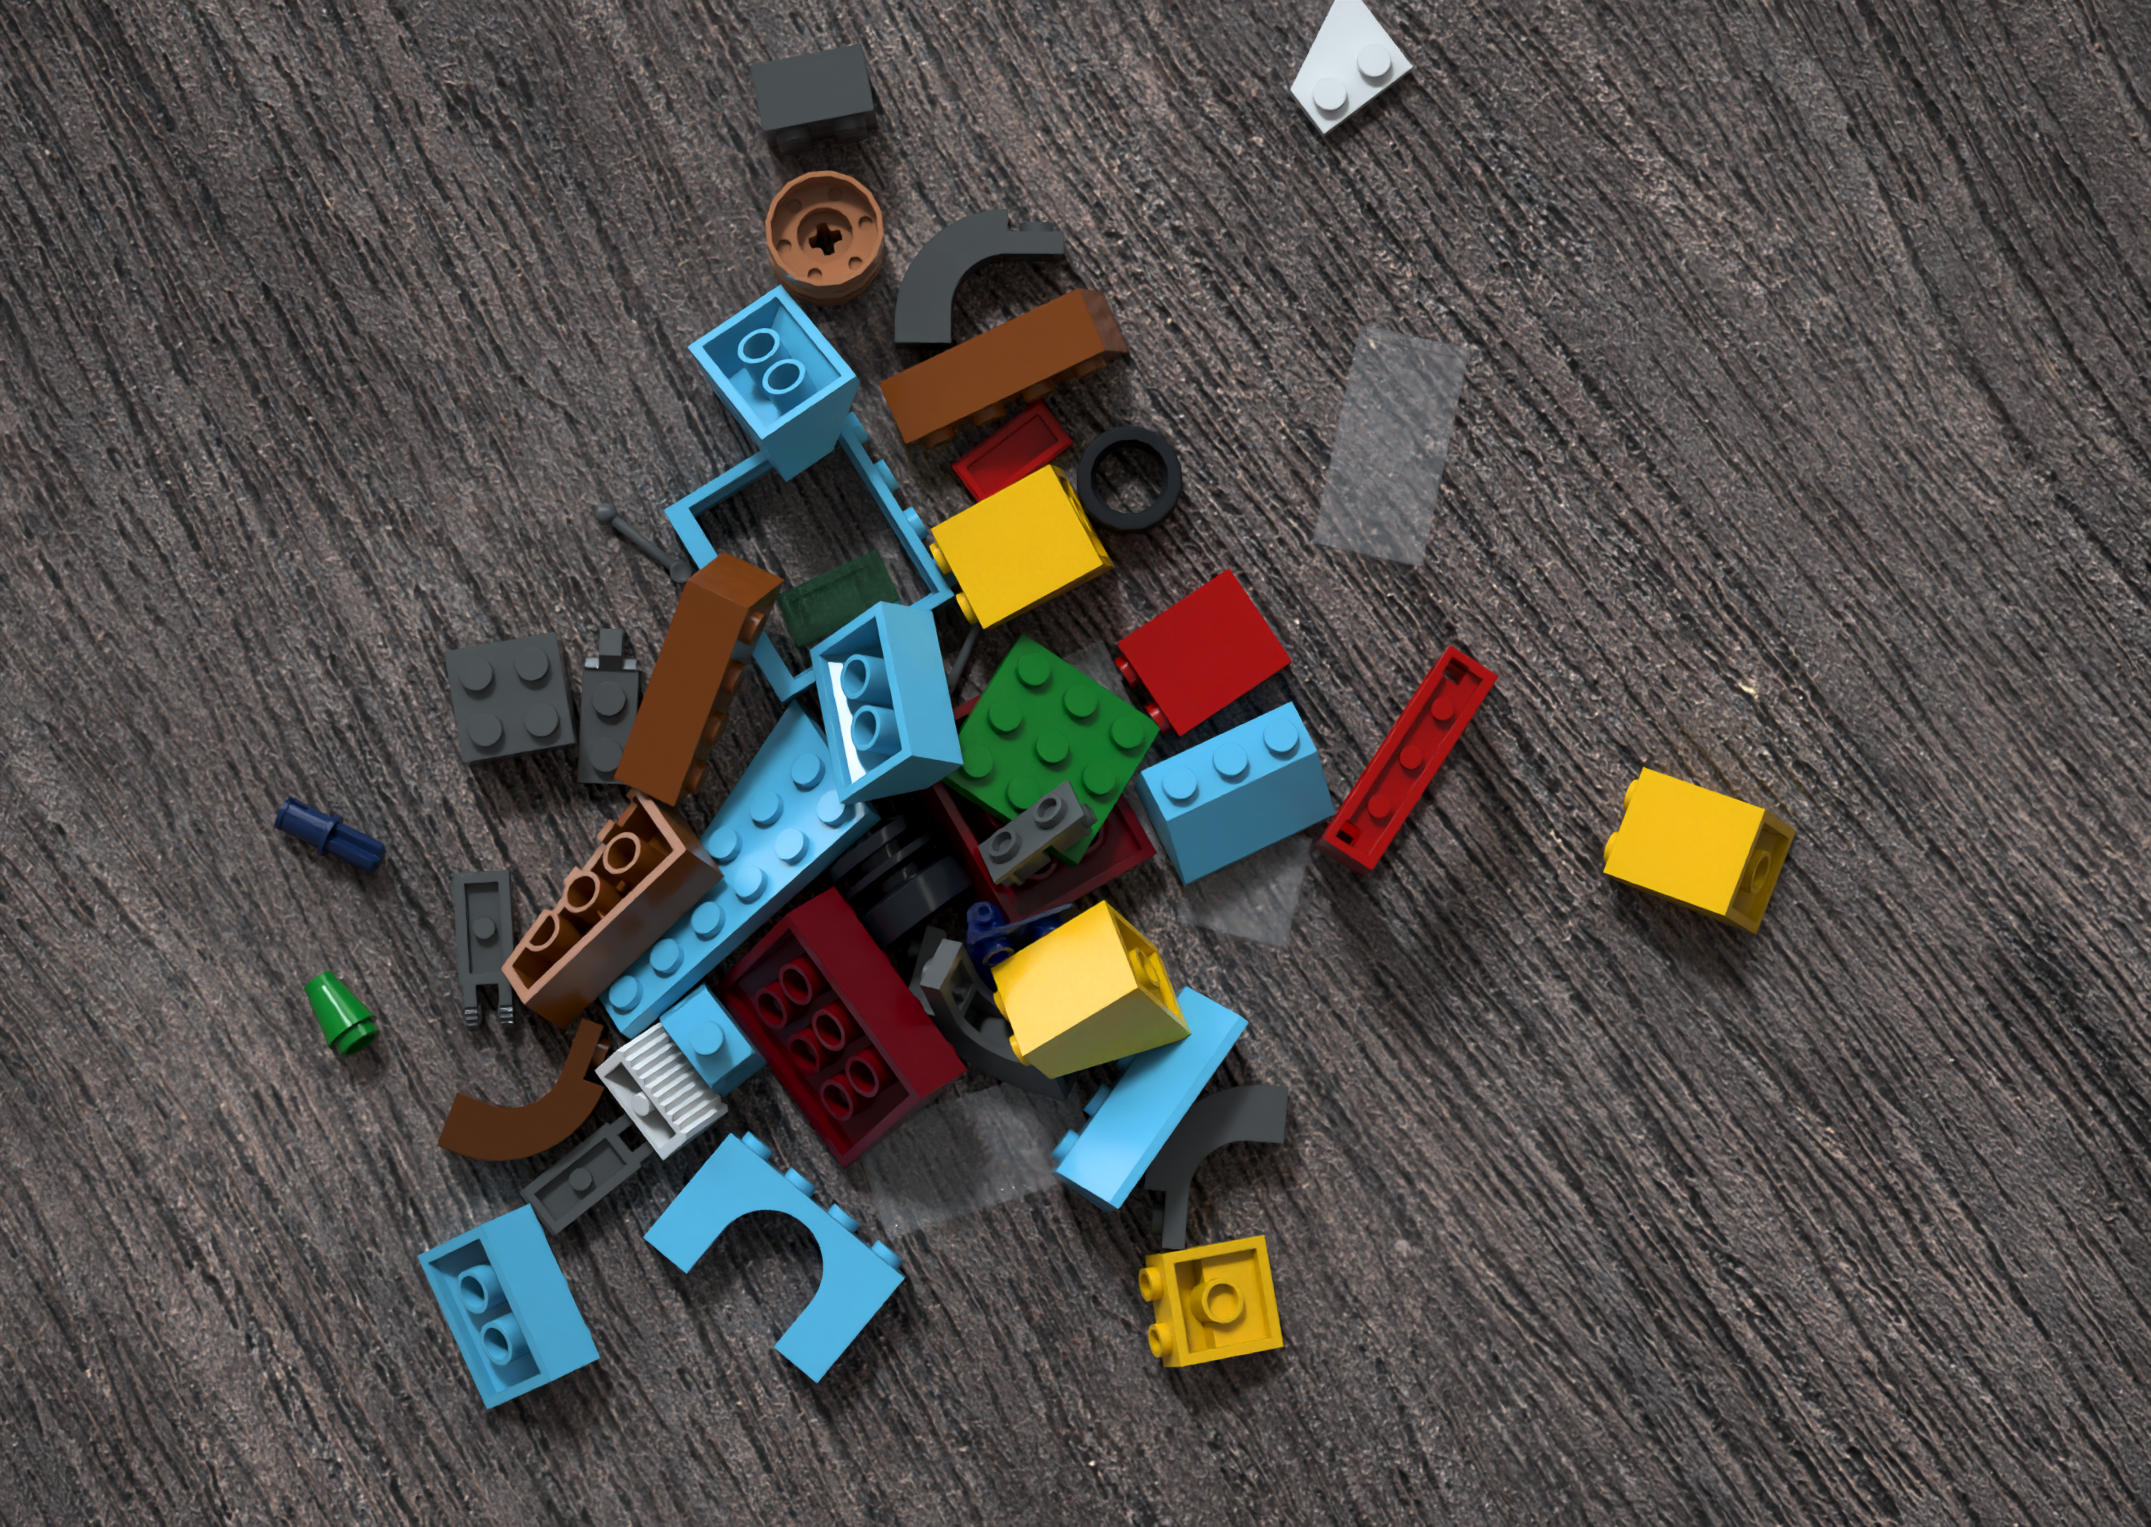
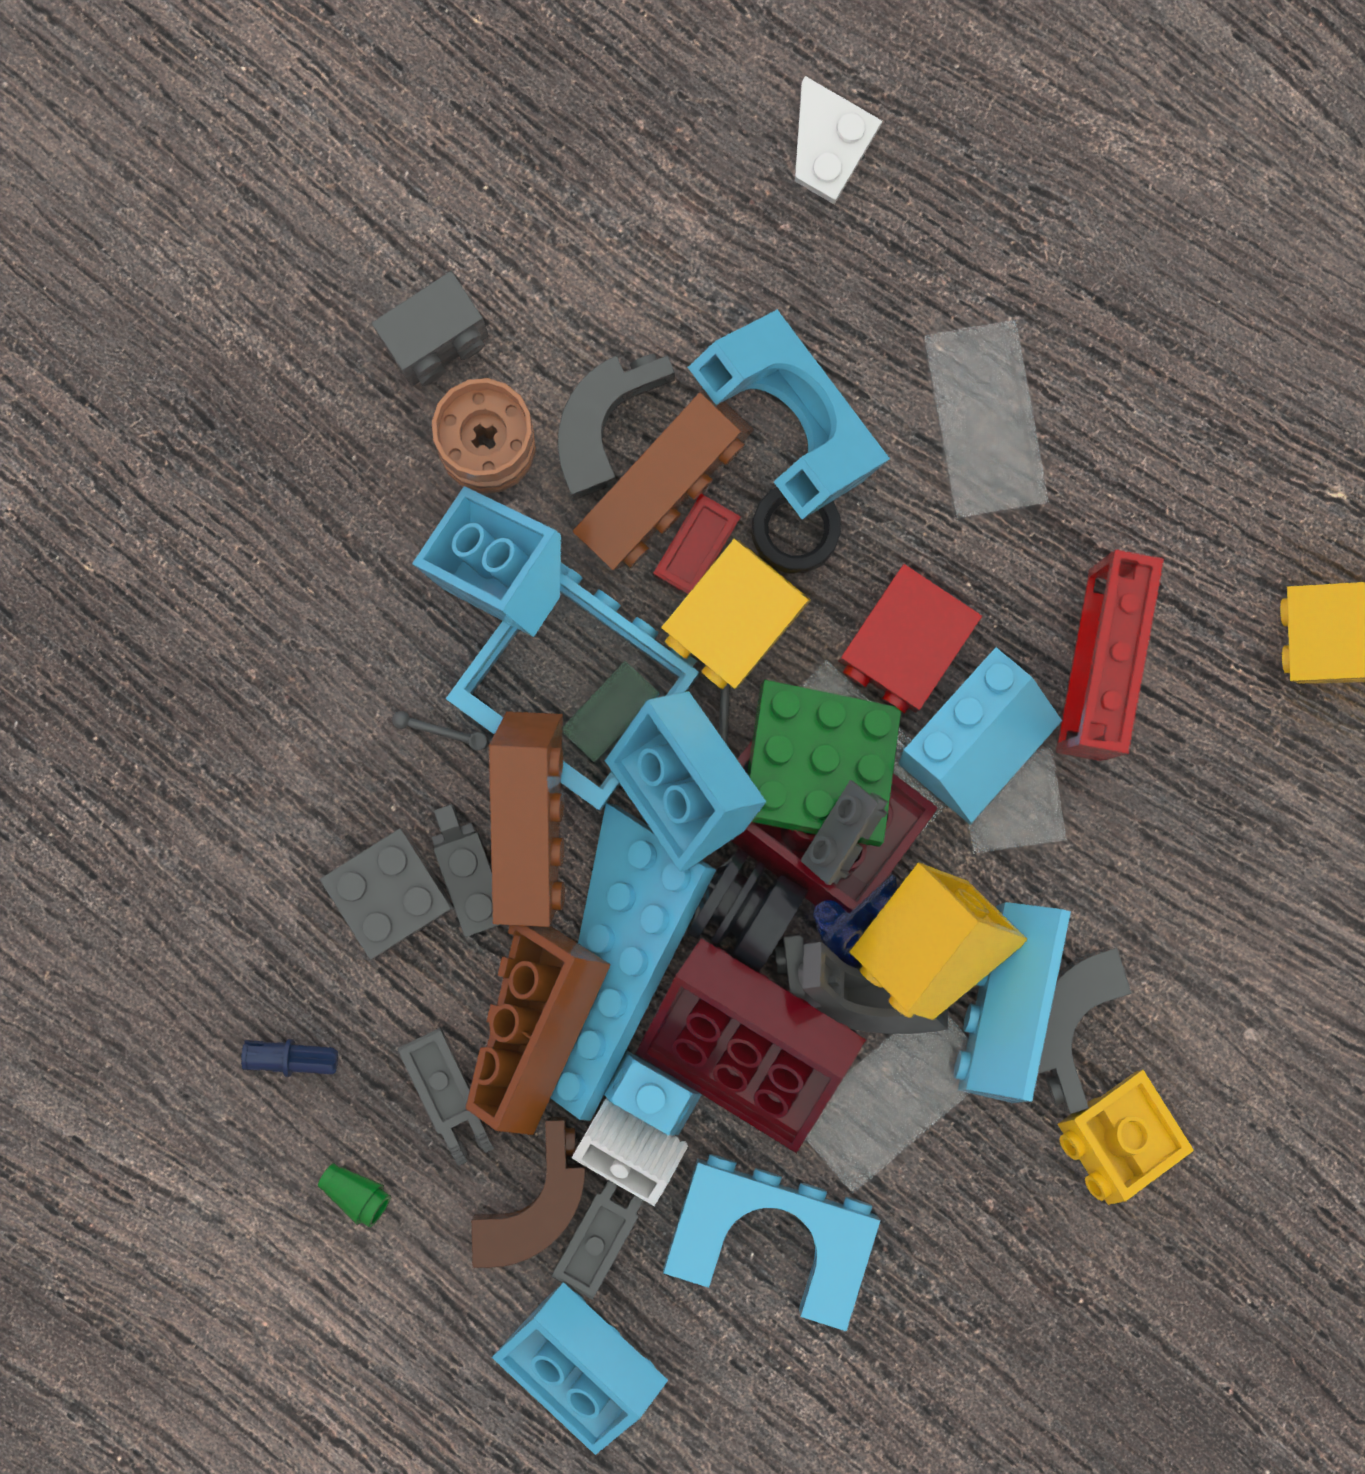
camera: 25 degrees left, 0 degrees up
(1181, 285) = (775, 360): none -> medium azure arch

